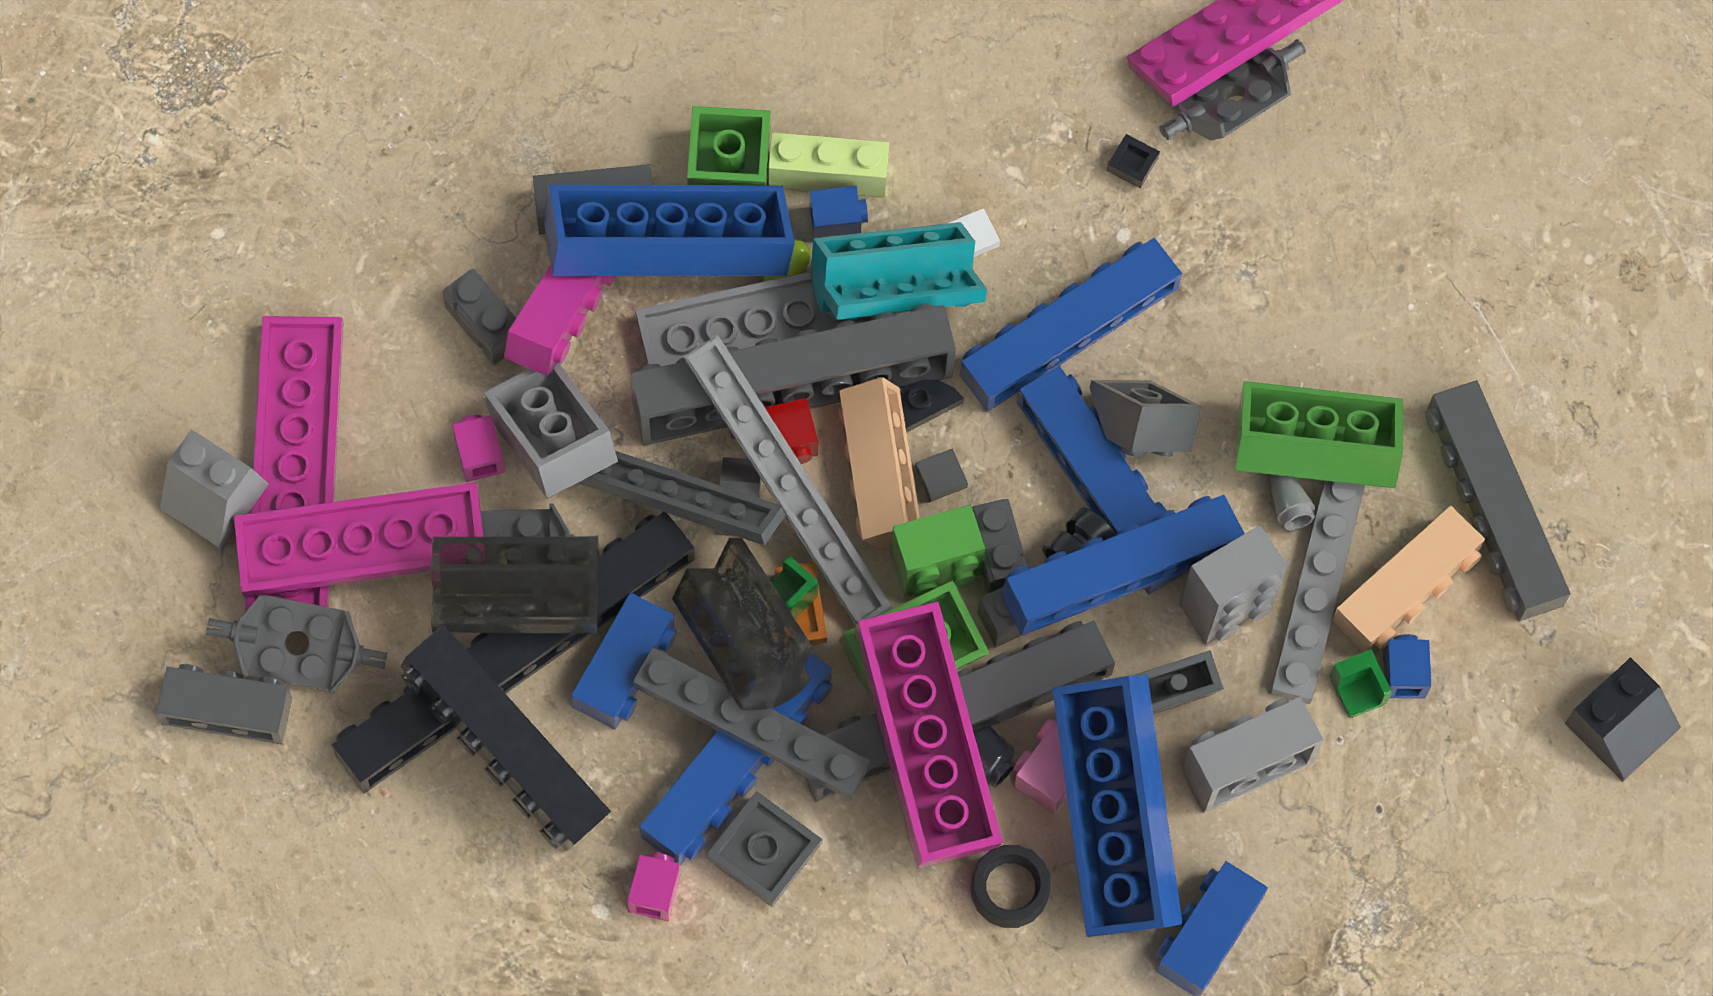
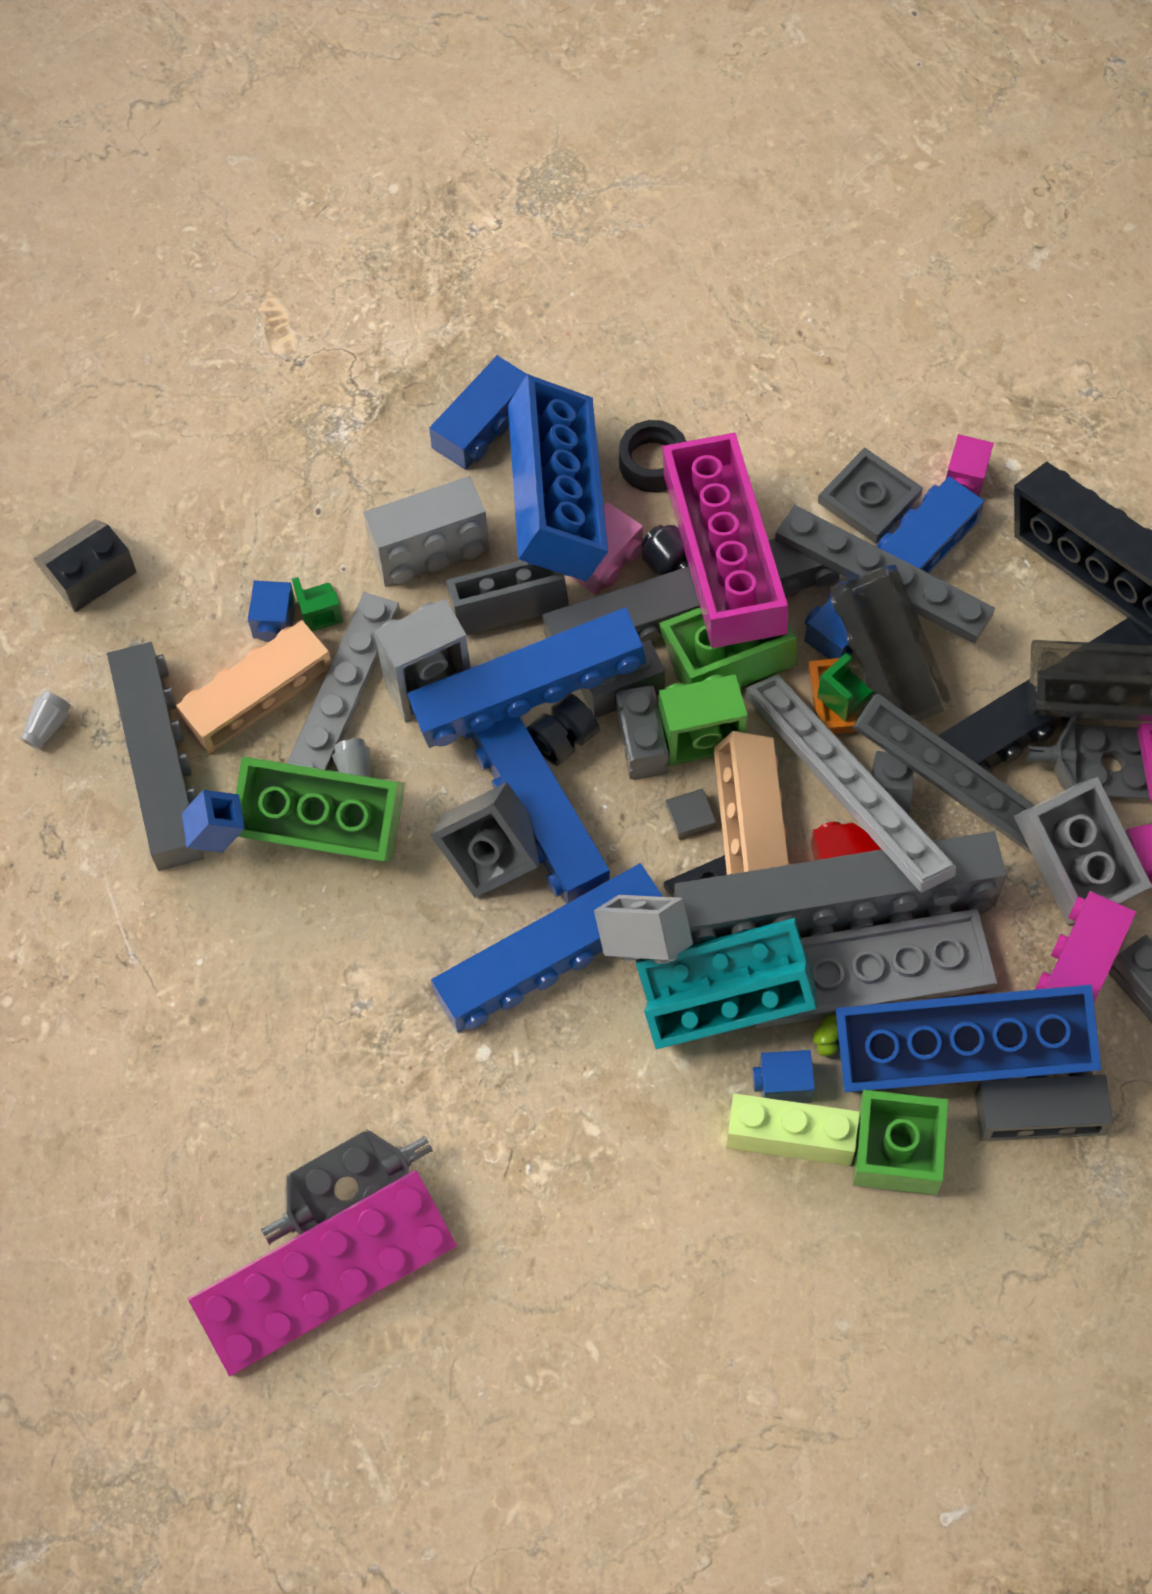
camera: 170 degrees left, 5 degrees down
(607, 683) = (999, 651): blue brick -> none
(981, 230) = (639, 1056): white tile -> none
(982, 305) = (643, 928): none -> light grey brick
(1133, 161) = (464, 1122): black plate -> none
(1420, 398) = (212, 821): none -> blue brick
(1620, 536) = (44, 719): none -> light grey cone

